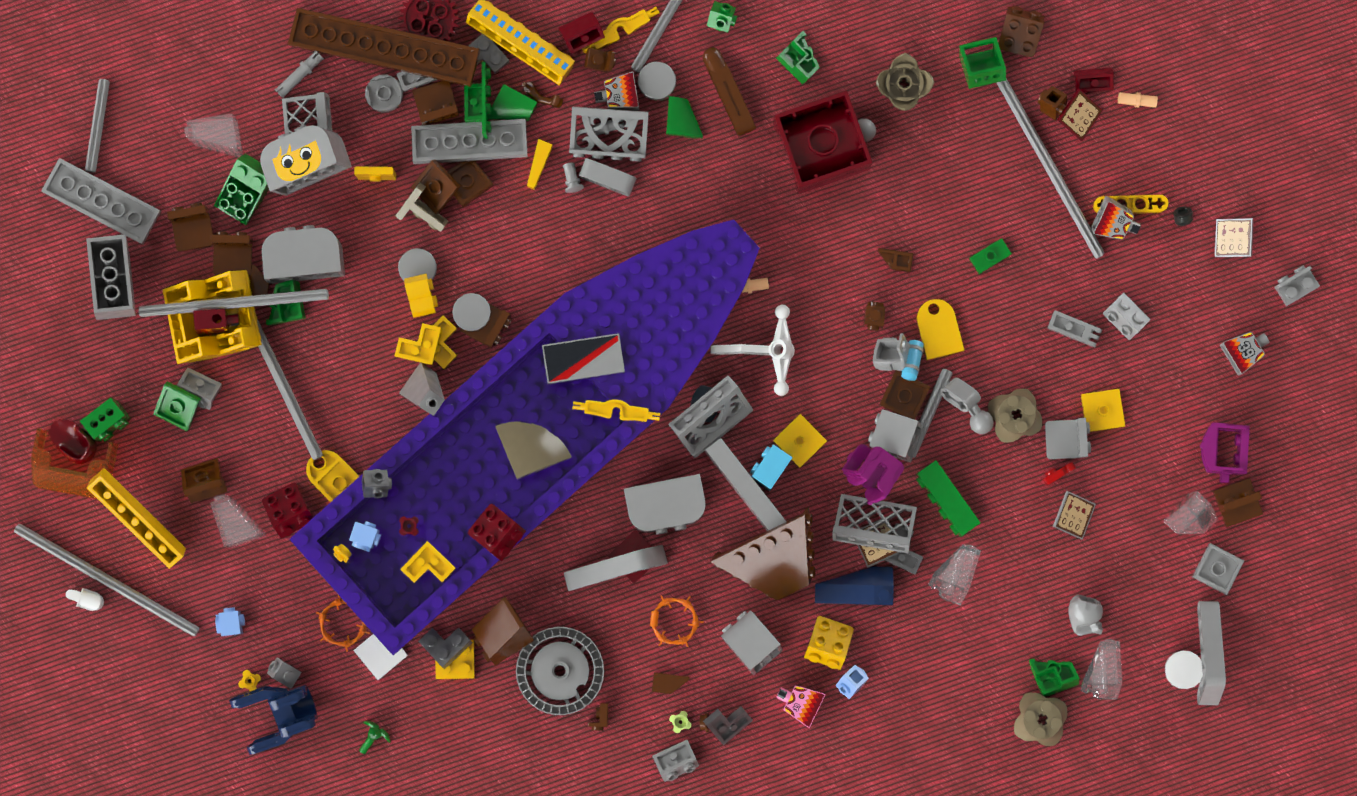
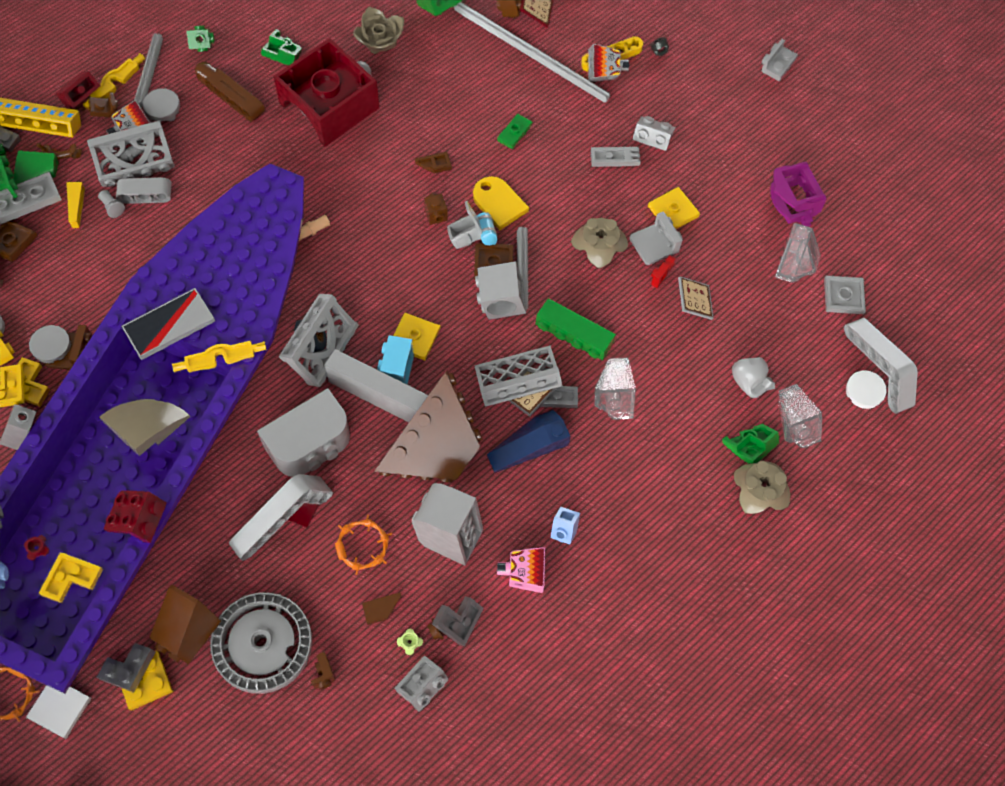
camera: 25 degrees left, 20 degrees down
(681, 119) = (195, 125): green slope -> none
(780, 361) = (360, 265): white piece -> none
(829, 643) = (525, 502): yellow bracket -> none
(878, 469) = (497, 317): magenta animal -> none
(966, 399) = (551, 238): light grey beam -> none
(1234, 237) = (709, 44): piece -> none
(1238, 502) = (832, 234): reddish brown bracket -> none
(1244, 351) = (765, 120): torso -> none

